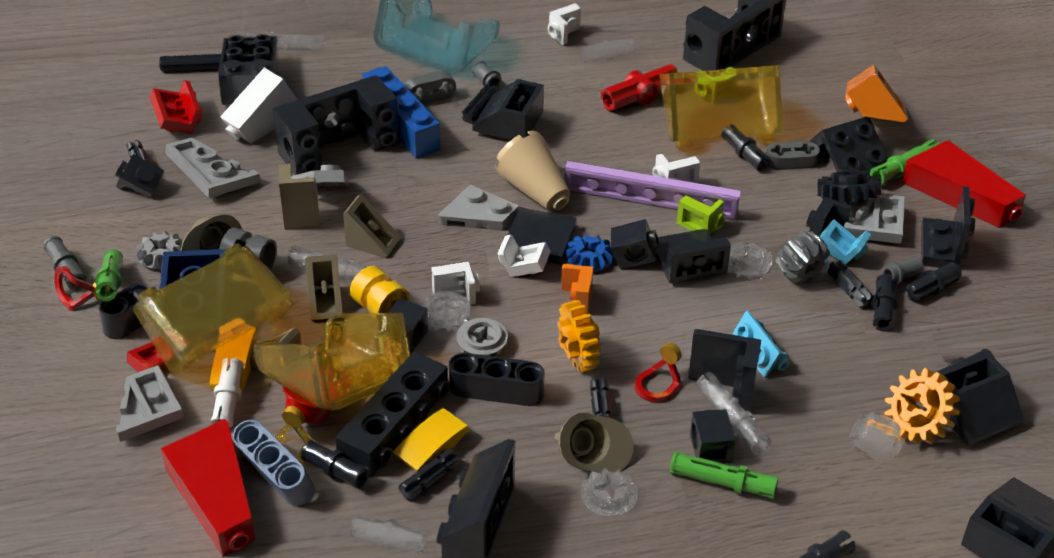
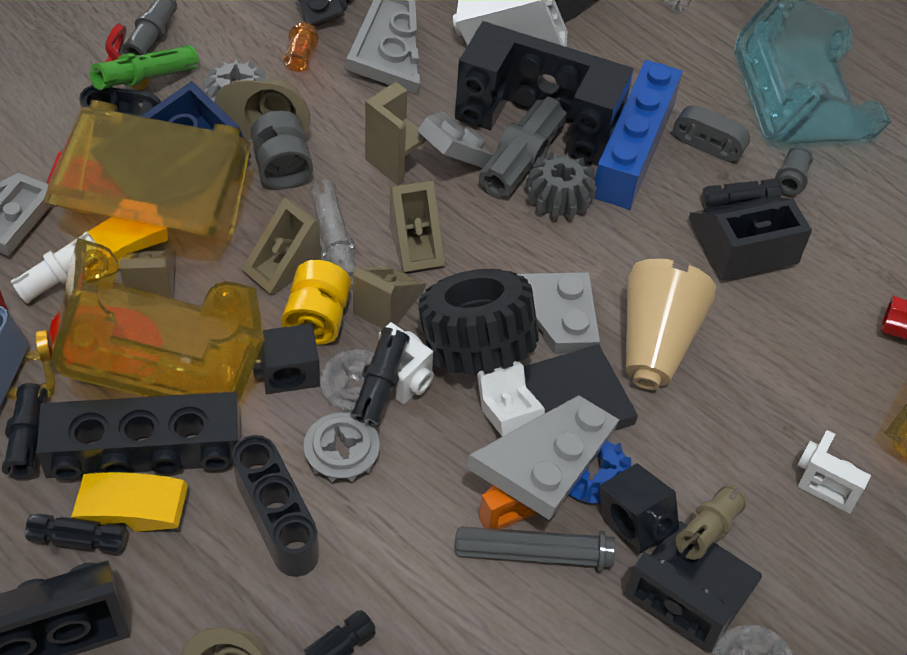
camera: 50 degrees right, 10 degrees up
(162, 202) = (302, 40): none -> clear orange pin
(357, 159) = (522, 146): none -> dark grey piece
(402, 160) = (561, 186): none -> dark grey gear
(403, 266) = (384, 294): none -> dark tan slope
(464, 289) = (380, 376): none -> black pin
(468, 231) = (479, 320): none -> black tyre
(578, 253) = (546, 455): none -> light grey wing
(579, 336) = (399, 548): light orange gear -> none
(639, 276) = (536, 546): none -> dark grey axle
(646, 188) = (773, 473): lavender tile -> none
(665, 225) = (711, 522): none -> dark tan pin
(696, 215) = (775, 557): lime bracket -> none

